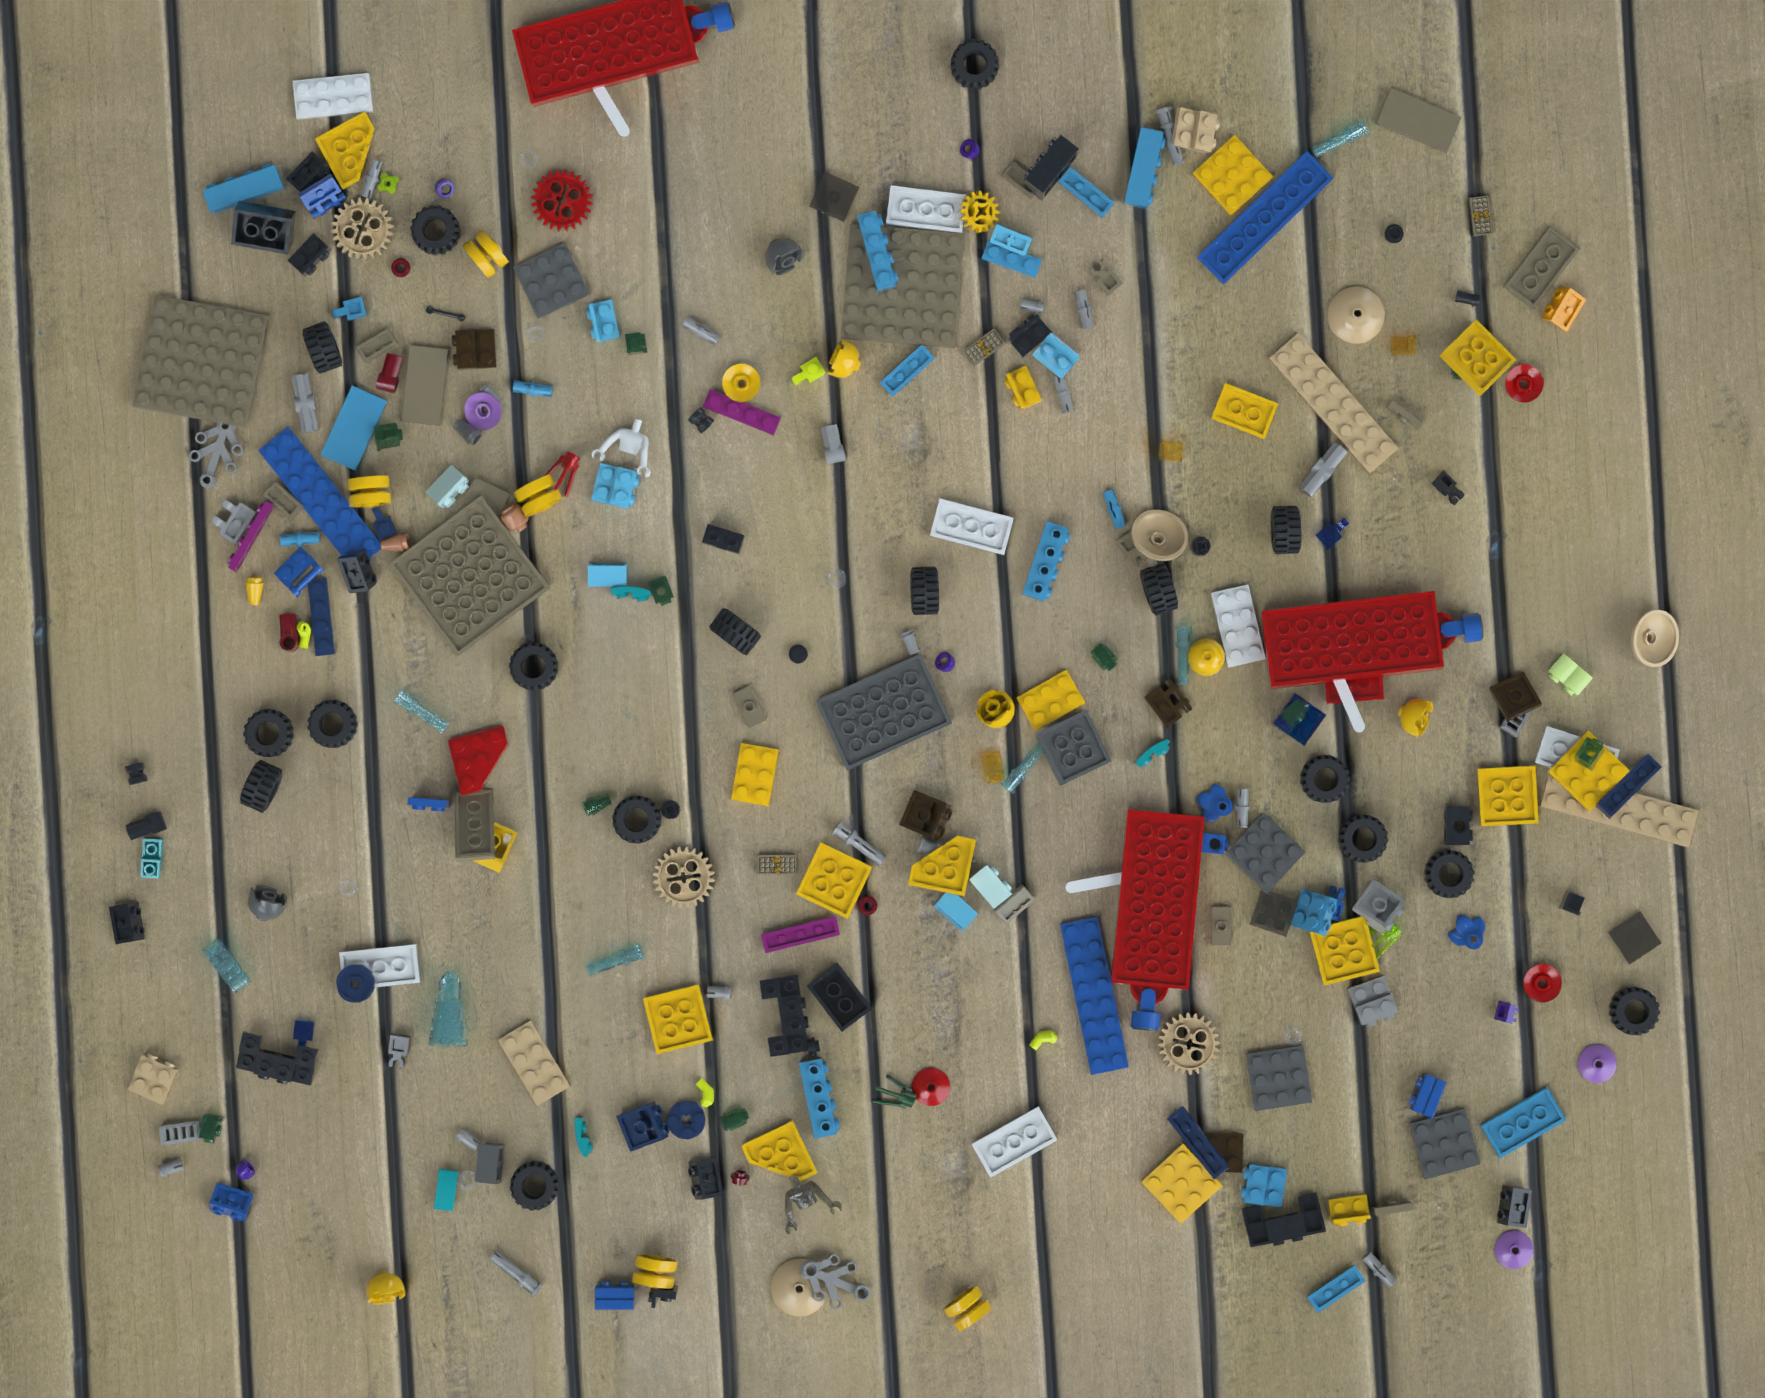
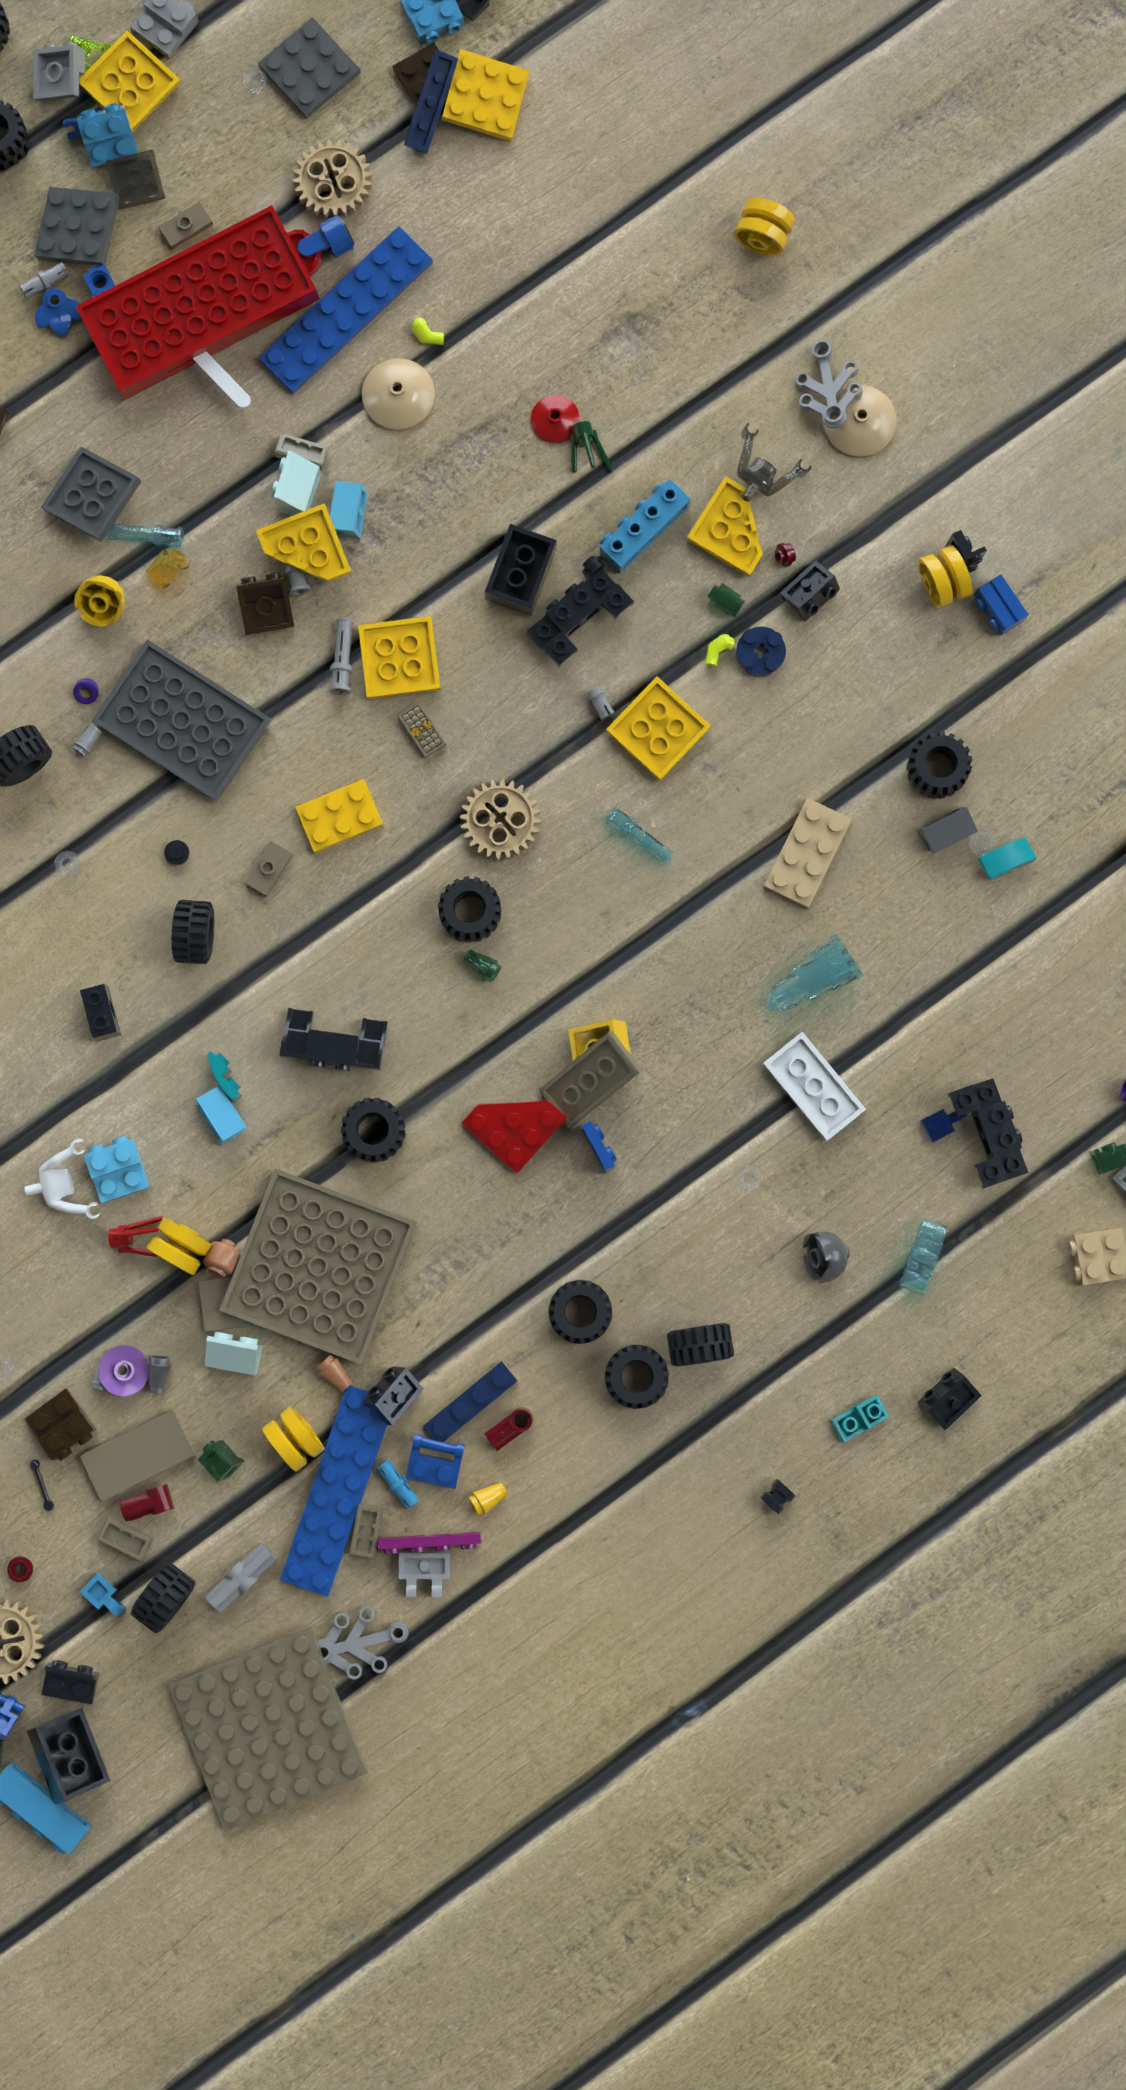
camera: 120 degrees left, 5 degrees down
(150, 824) = (823, 1443): black piece -> none
(304, 632) = (500, 1409): neon yellow arm -> none
(344, 983) = (838, 1108): dark blue plate -> none
(353, 428) = (235, 1504): dark azure tile -> none
(383, 526) = (323, 1398): dark blue plate -> none
(398, 1047) = (887, 1009): plate -> none
(412, 706) = (503, 1235): clear light blue pin -> none
(467, 1139) = (937, 870): light grey pin -> none
(524, 1279) = (1046, 714): light grey pin -> none
(532, 388) = (65, 1331): dark azure pin -> none
(583, 1142) = (856, 744): teal slope -> none
(602, 674) = (333, 1048): none -> black bracket
(643, 1126) = (798, 690): dark blue plate -> none
(661, 582) = (197, 1053): clear green brick -> none
(672, 811) = (436, 884): black wheel -> none
(800, 934) = (481, 656): magenta plate -> none
(867, 911) = (403, 598): dark red plate -> none
(1012, 979) = (398, 409): none -> tan dish
(1014, 1142) = (556, 293): white plate -> none
(1050, 700) = (56, 553): yellow plate -> none
(1158, 749) = (37, 406): teal slope -> none

